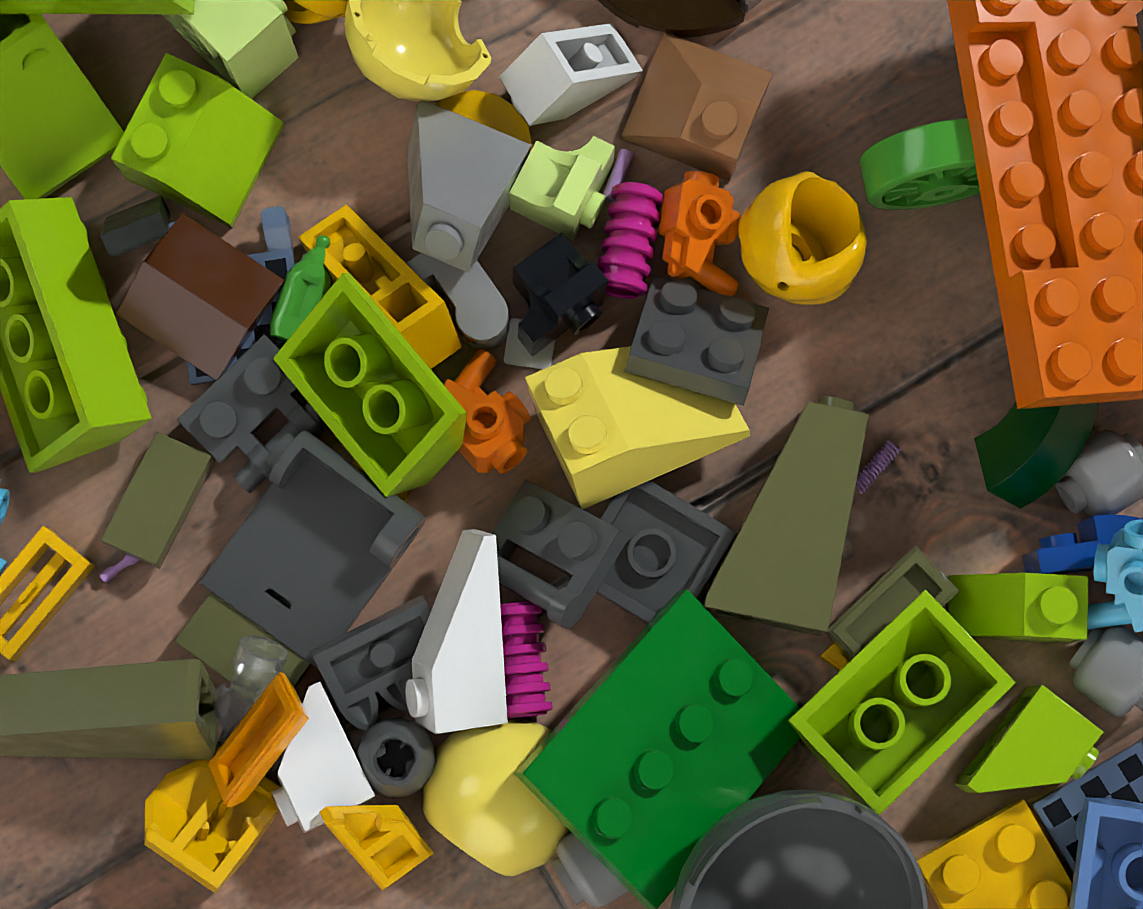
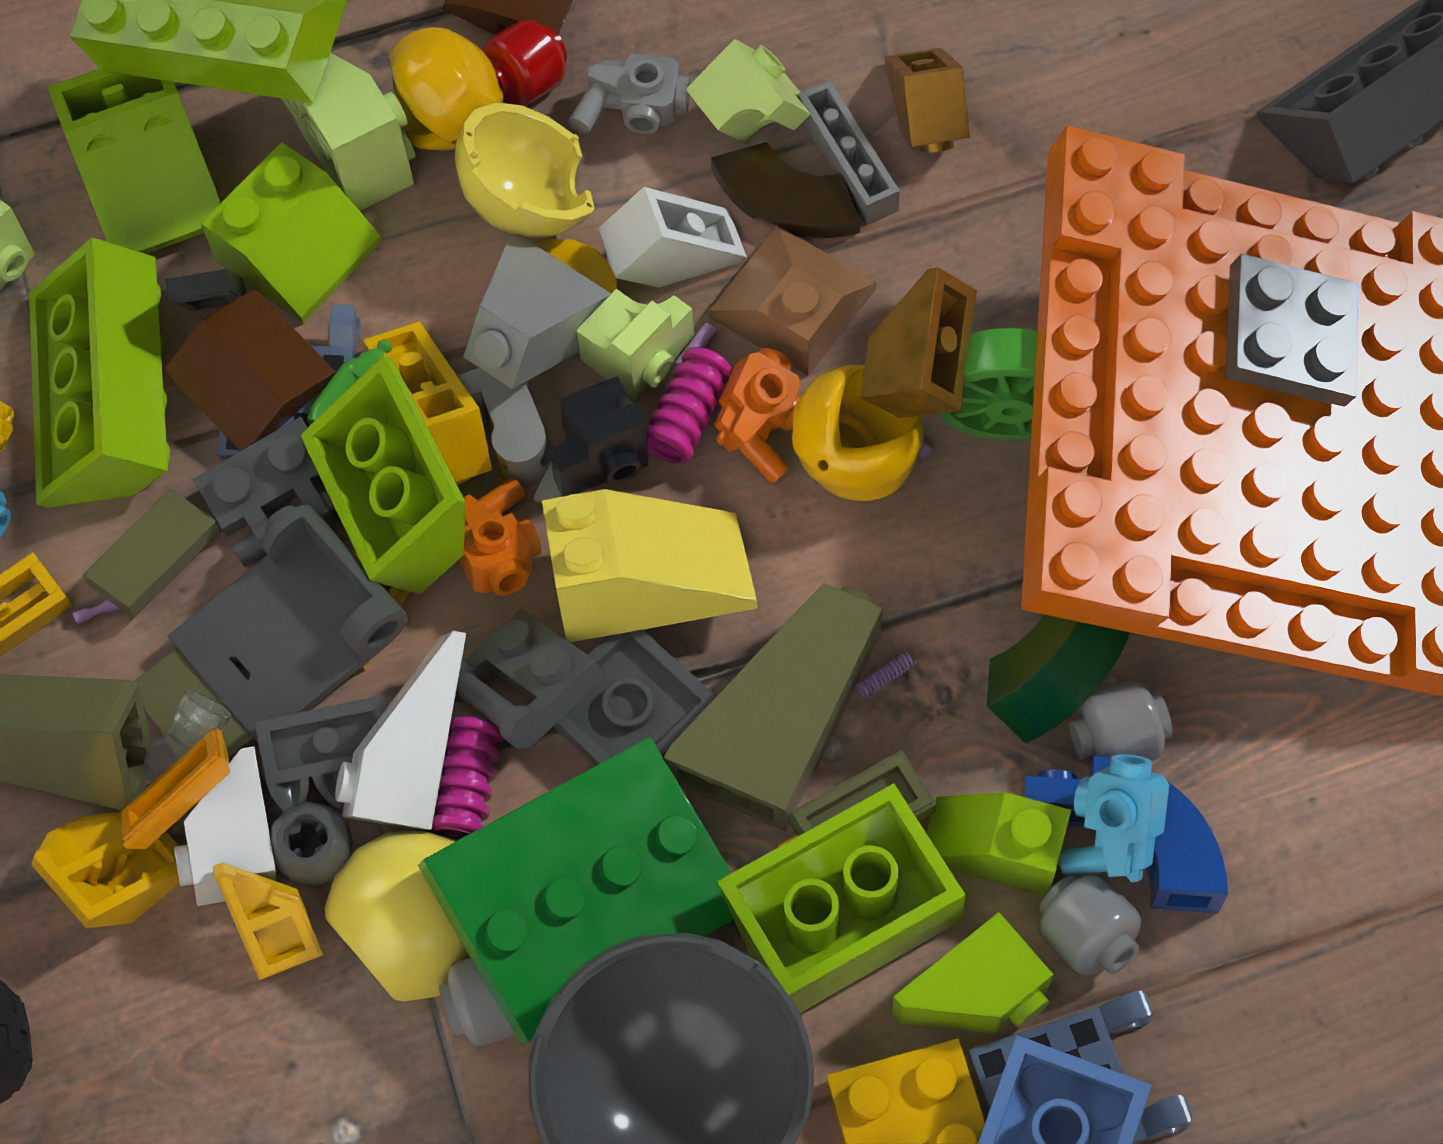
camera: 20 degrees right, 15 degrees down
(697, 340) = (728, 506): dark grey plate -> none
(860, 159) = (921, 349): none -> pearl gold slope

